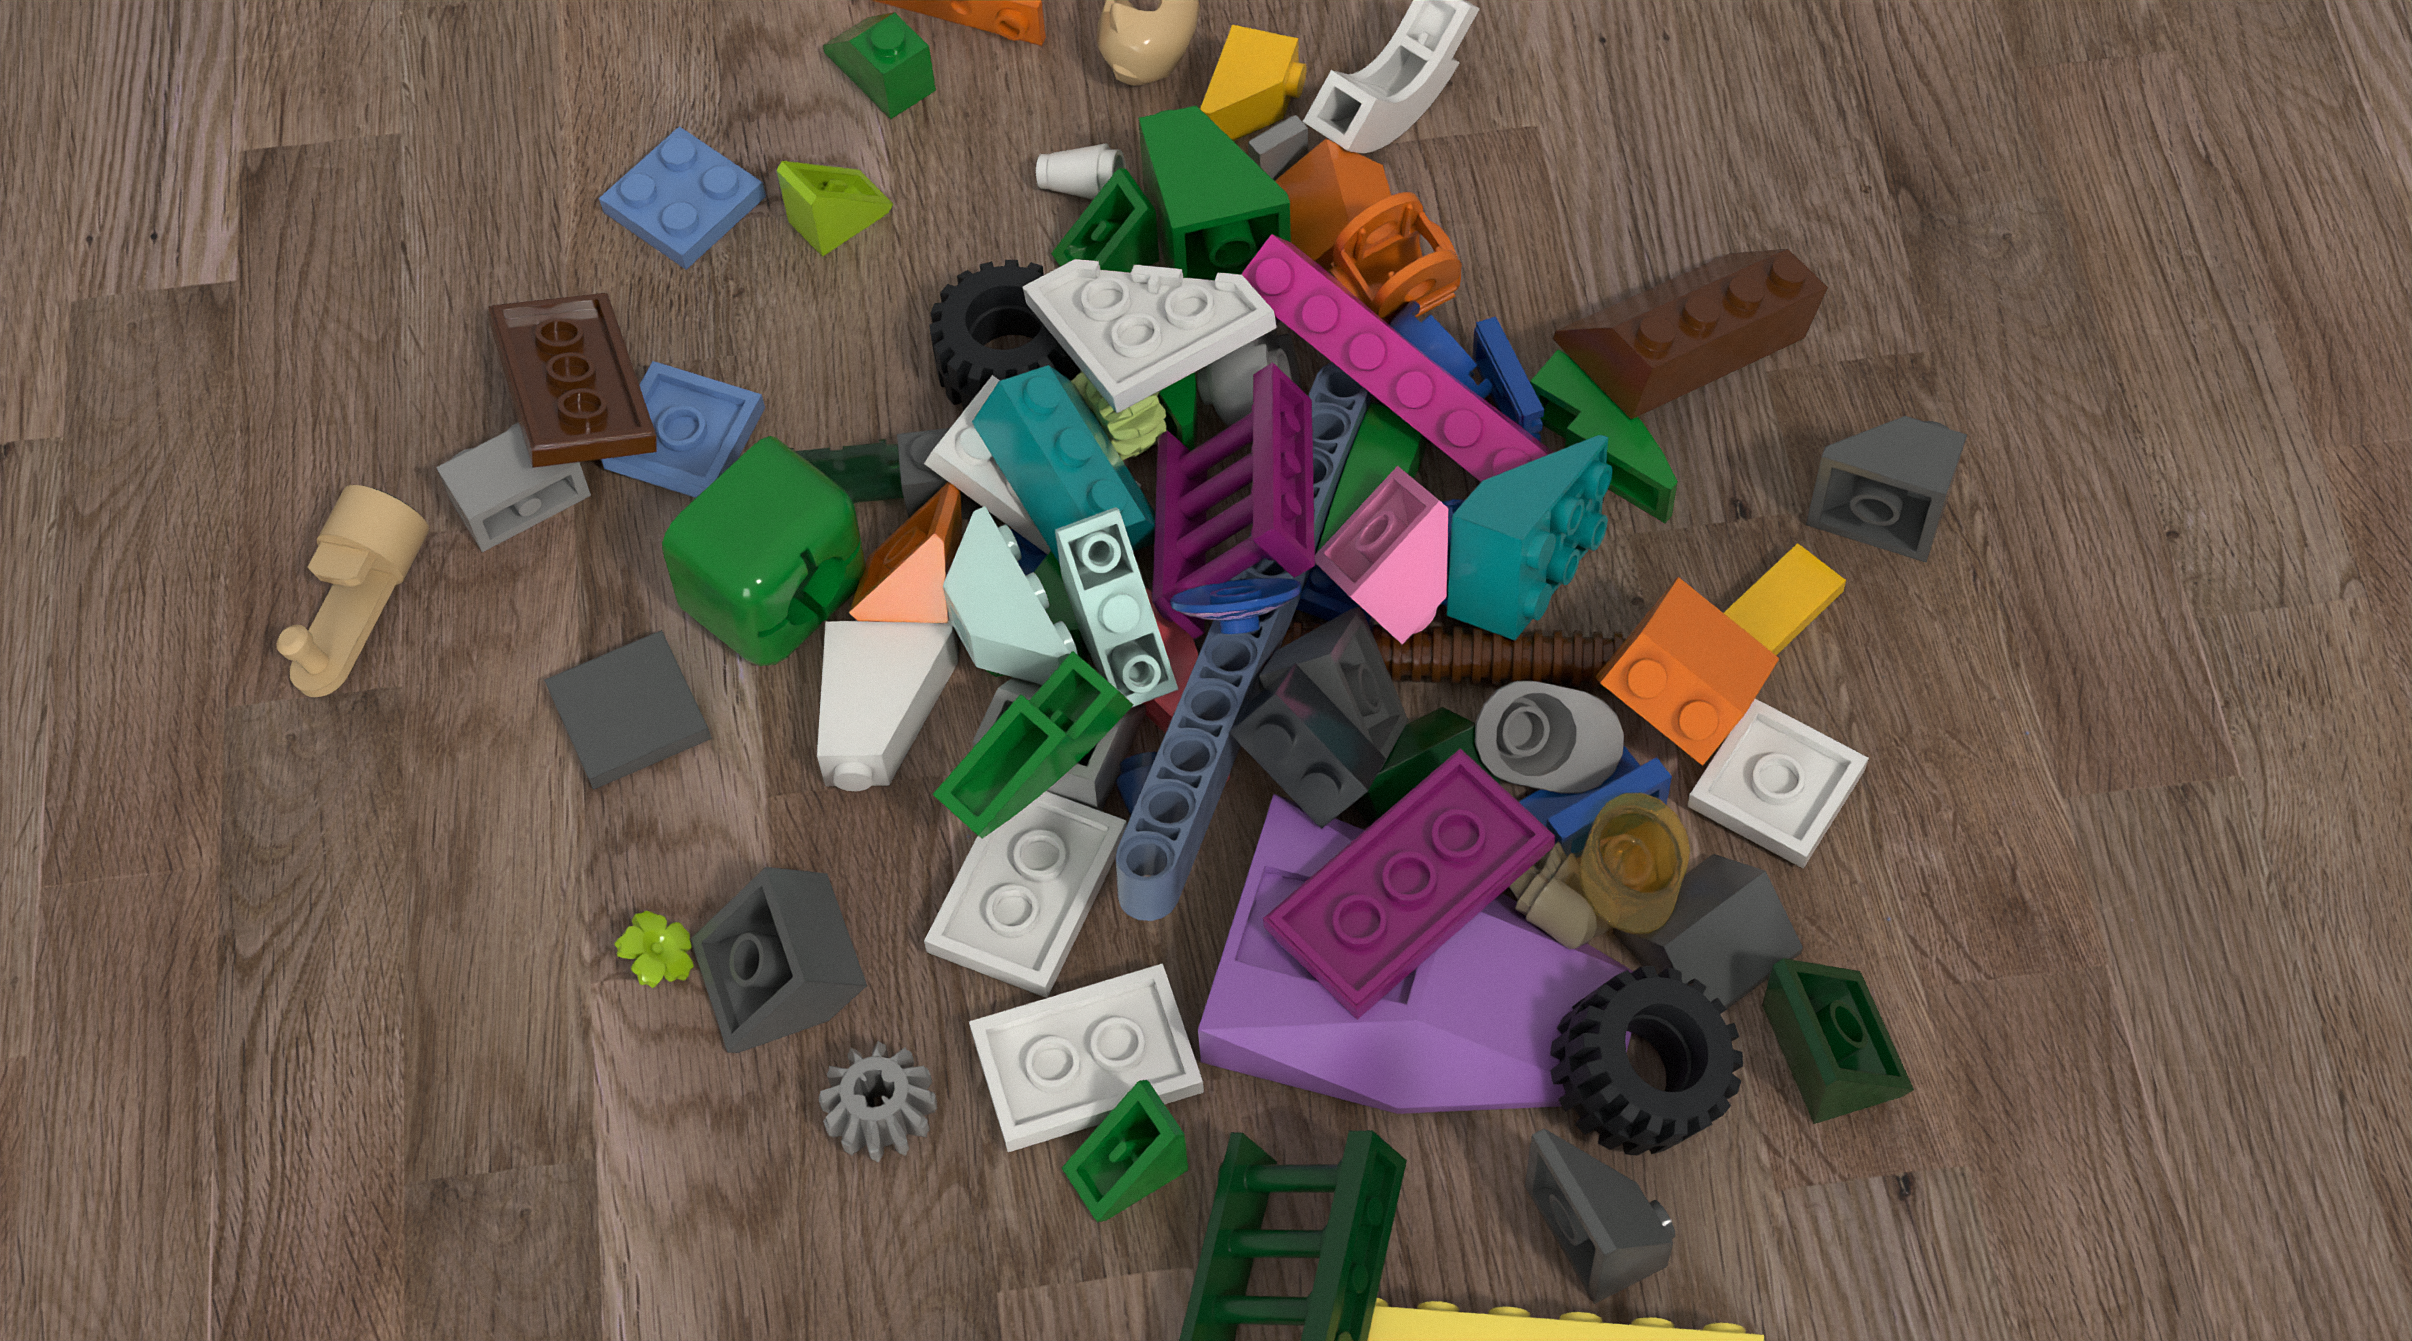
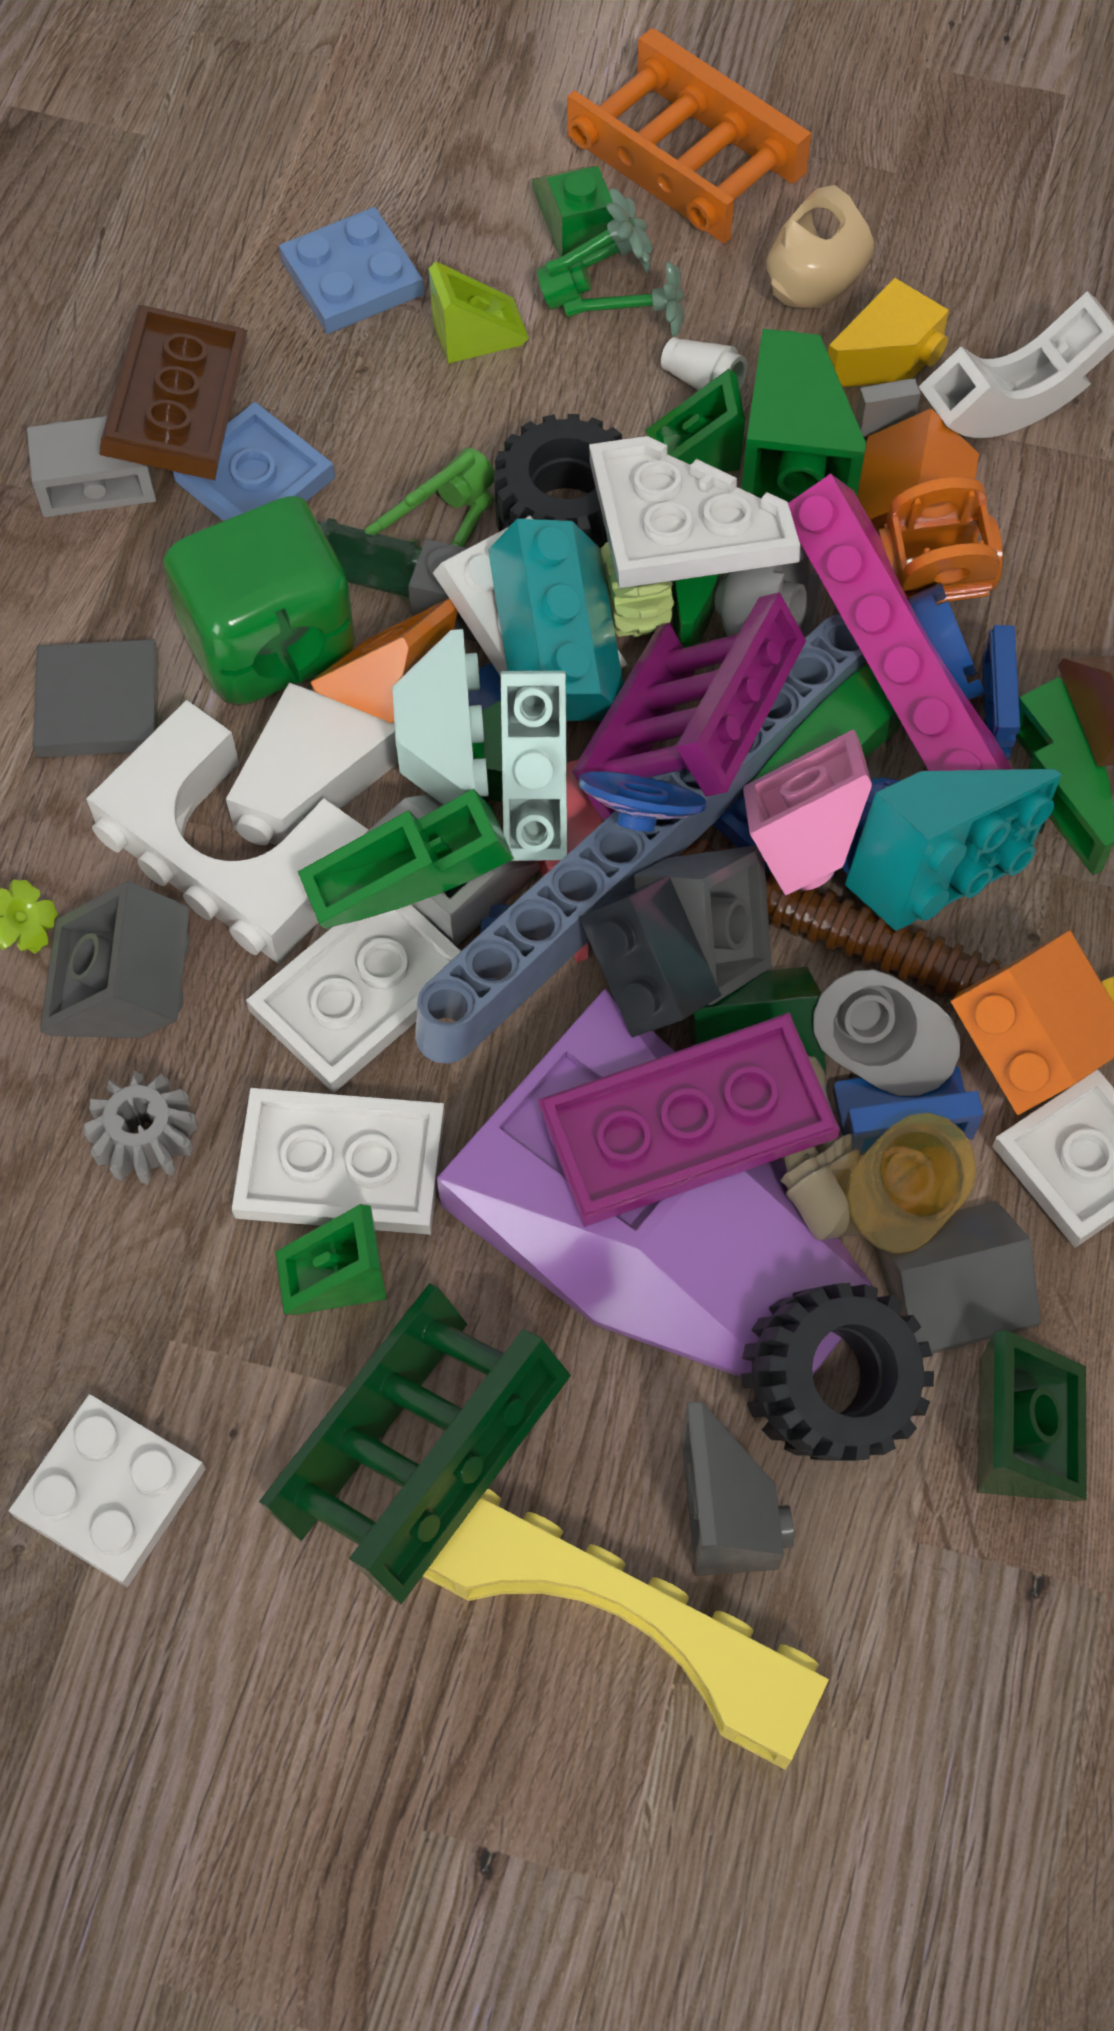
camera: 20 degrees right, 5 degrees up
(890, 842) = (147, 811): none -> white arch
(893, 370) = (459, 484): none -> bright green plant
(909, 132) = (567, 277): none -> plant

